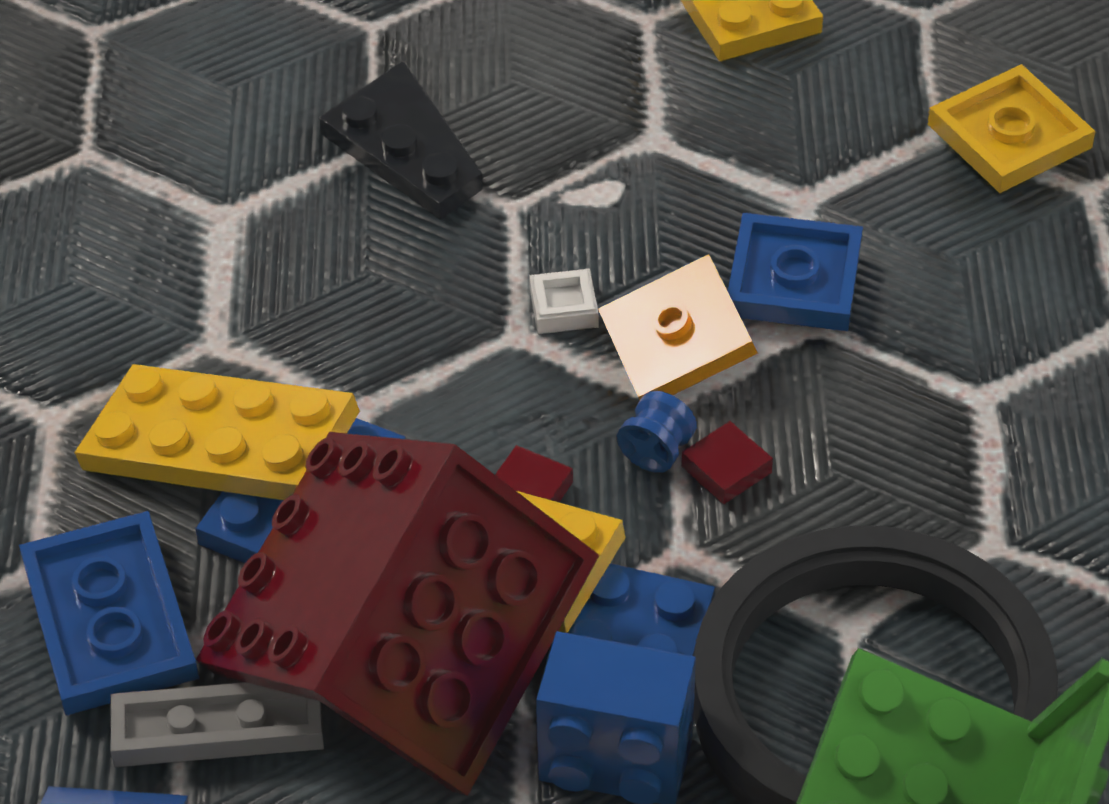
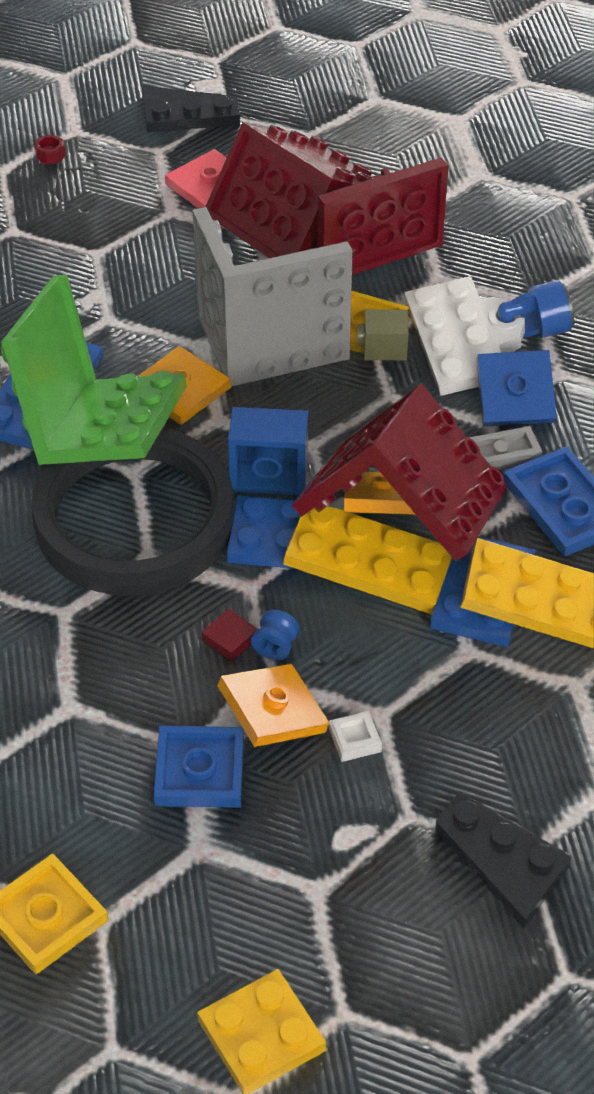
camera: 170 degrees right, 0 degrees up
(535, 474) = (348, 606): dark red tile -> none

